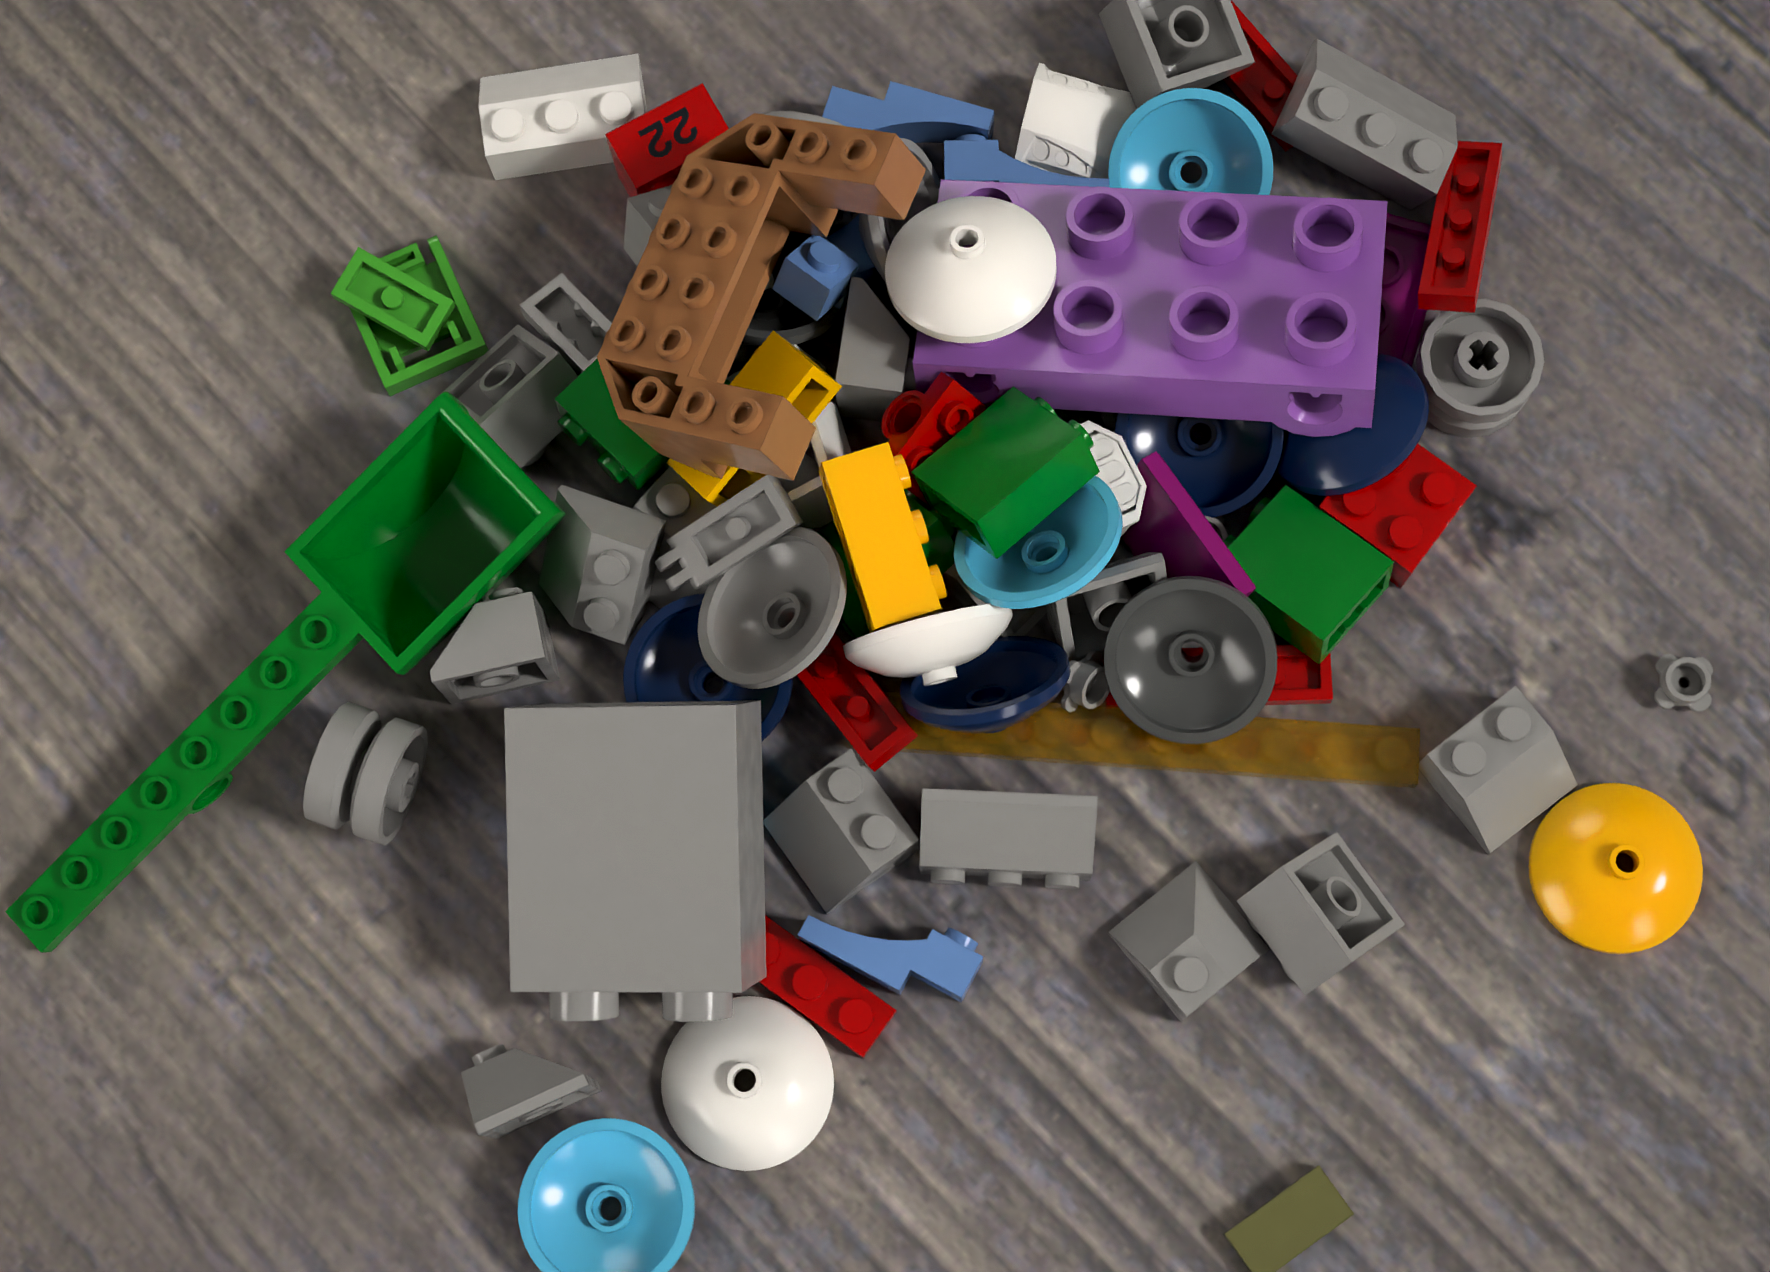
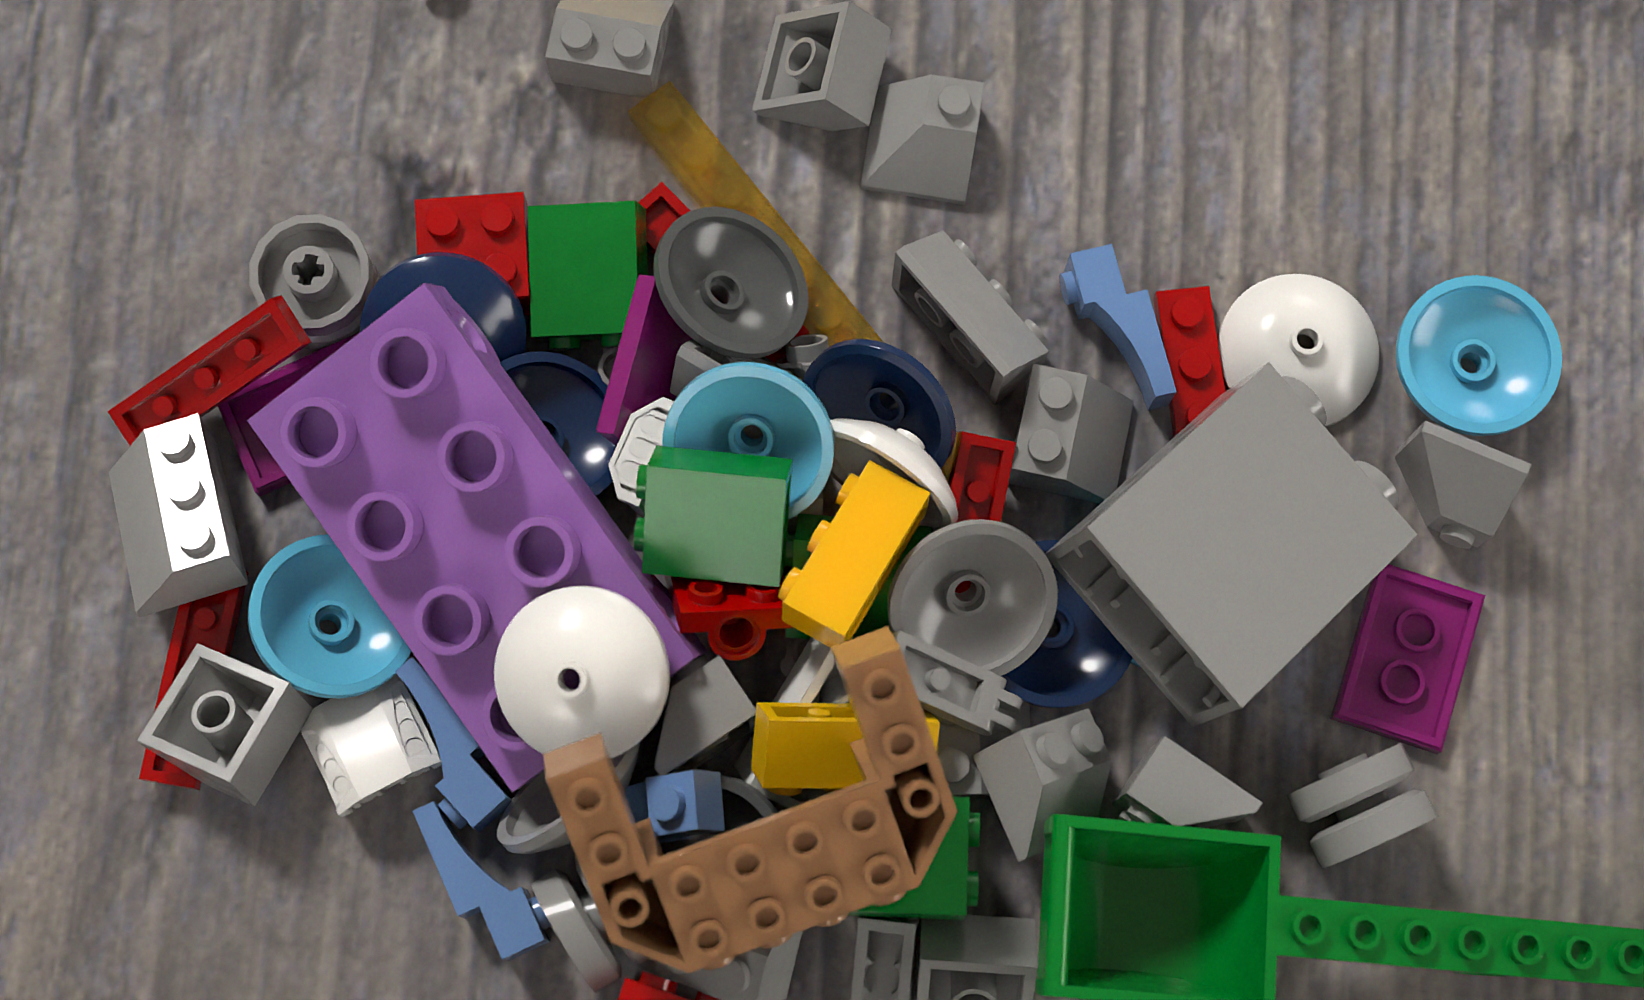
camera: 140 degrees left, 0 degrees up
(438, 934) = (1408, 658): none -> magenta tile

